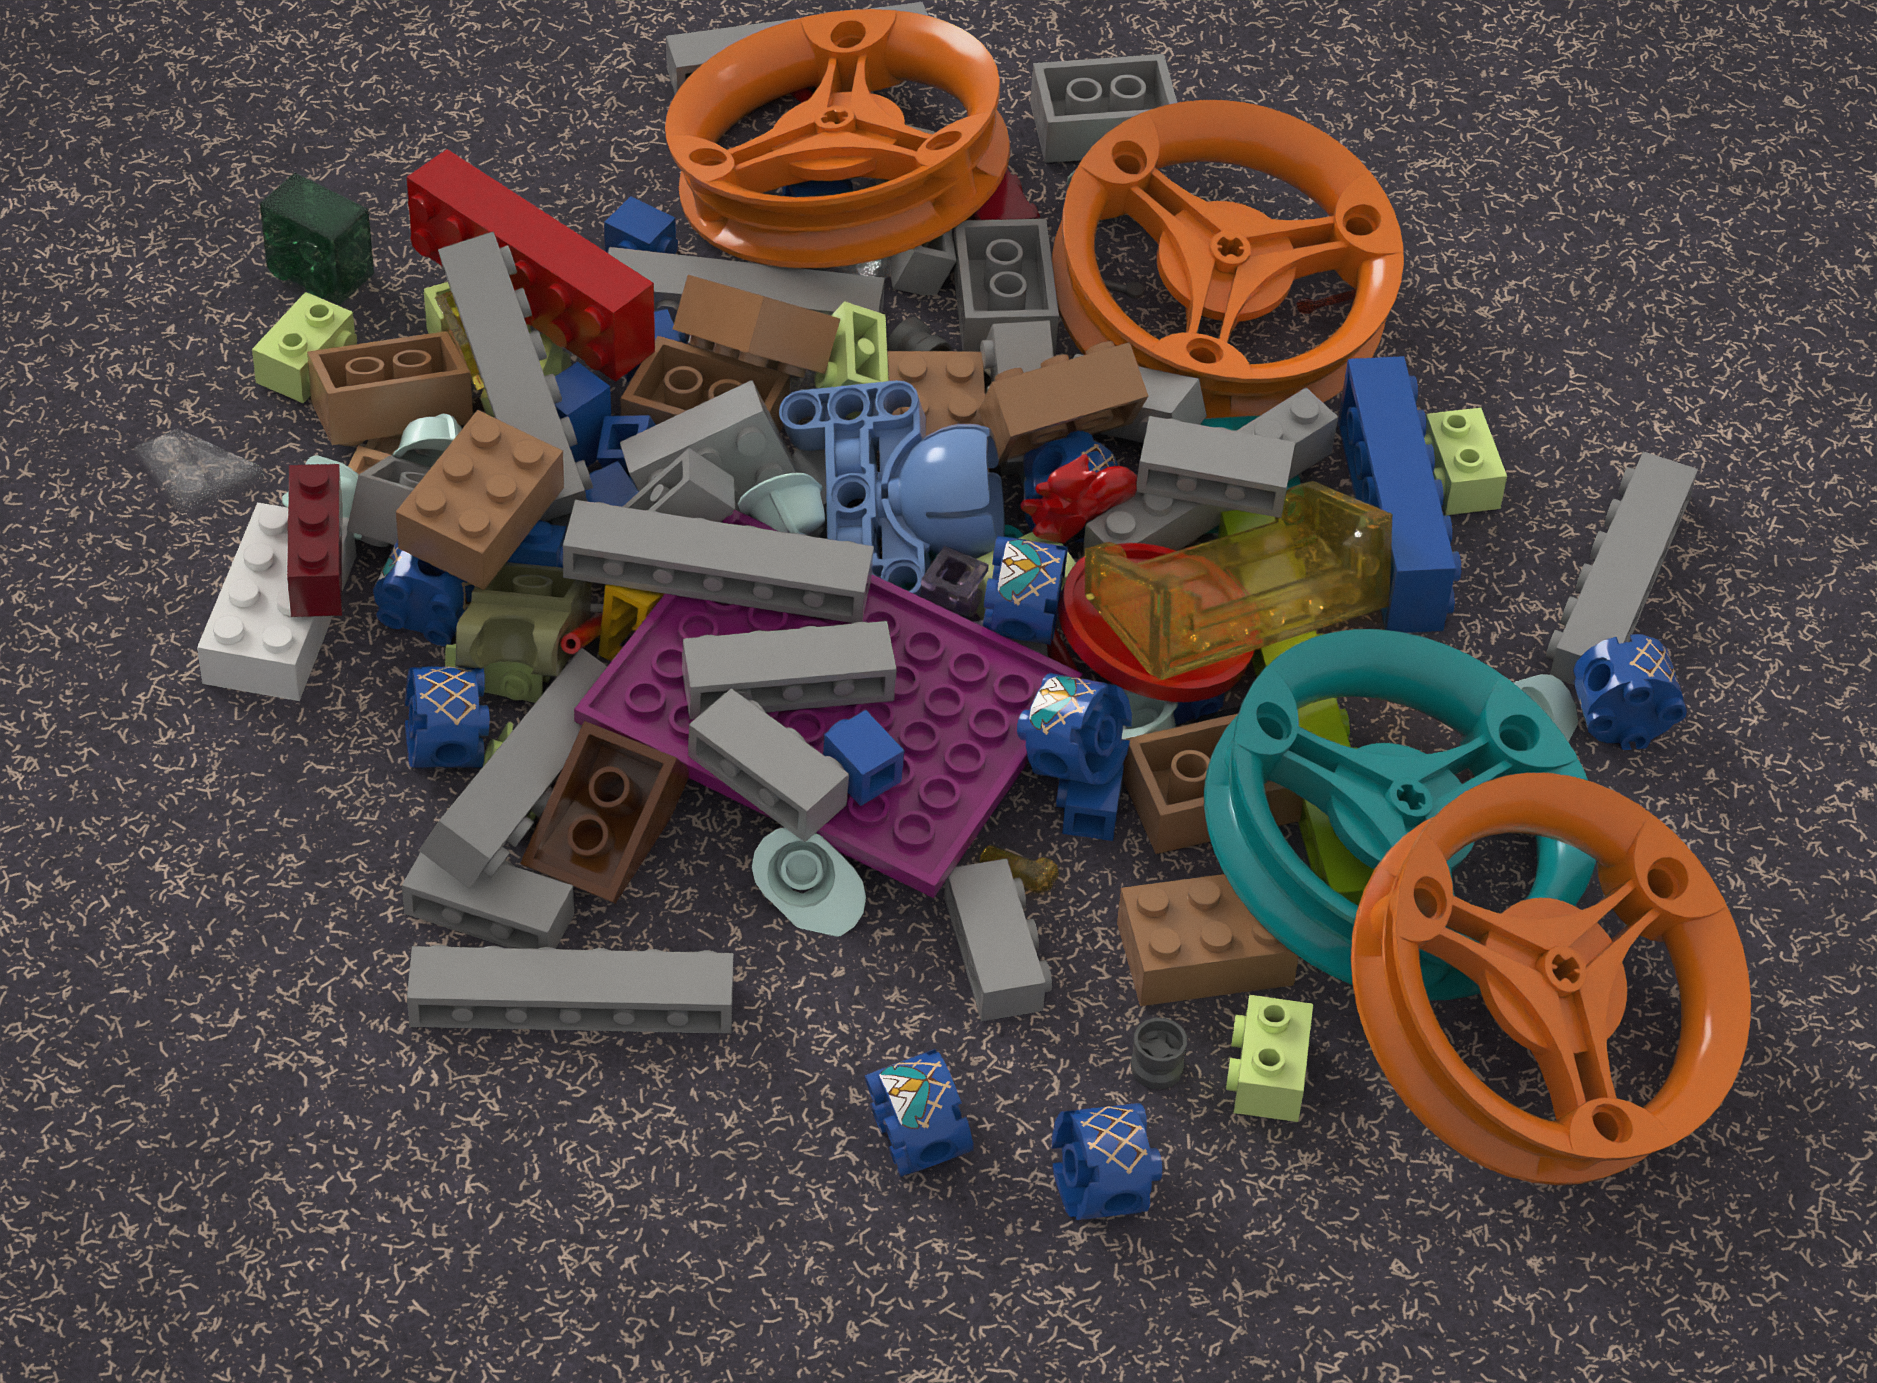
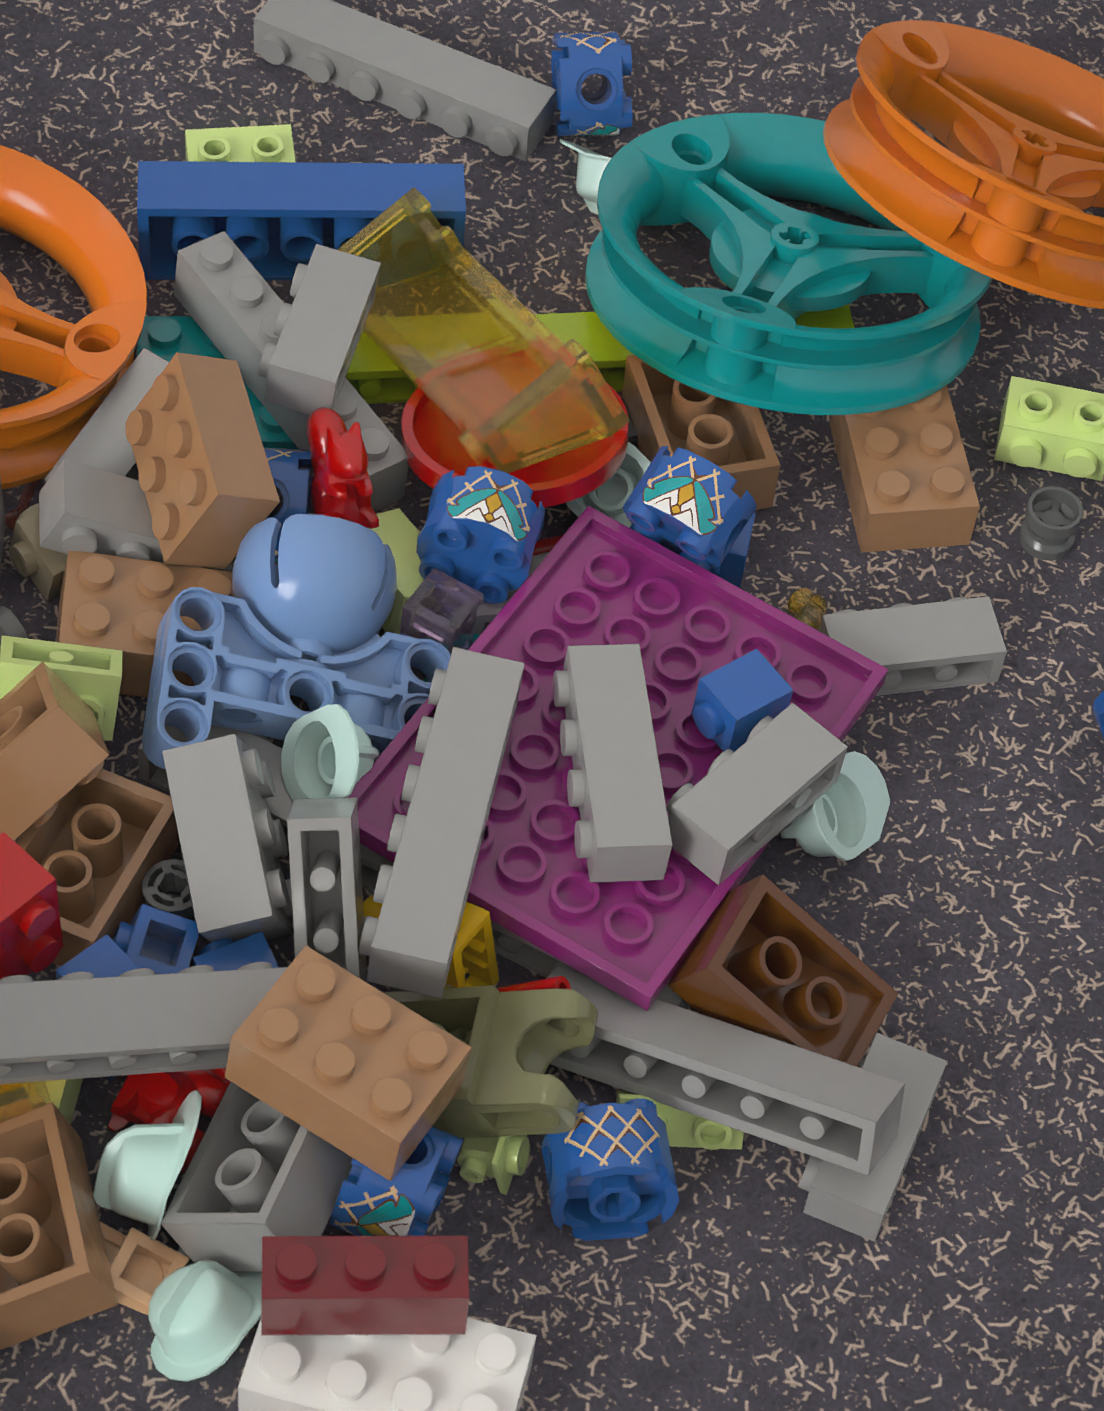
camera: 90 degrees left, 5 degrees up
(570, 989) = (1002, 1058): light grey brick -> none

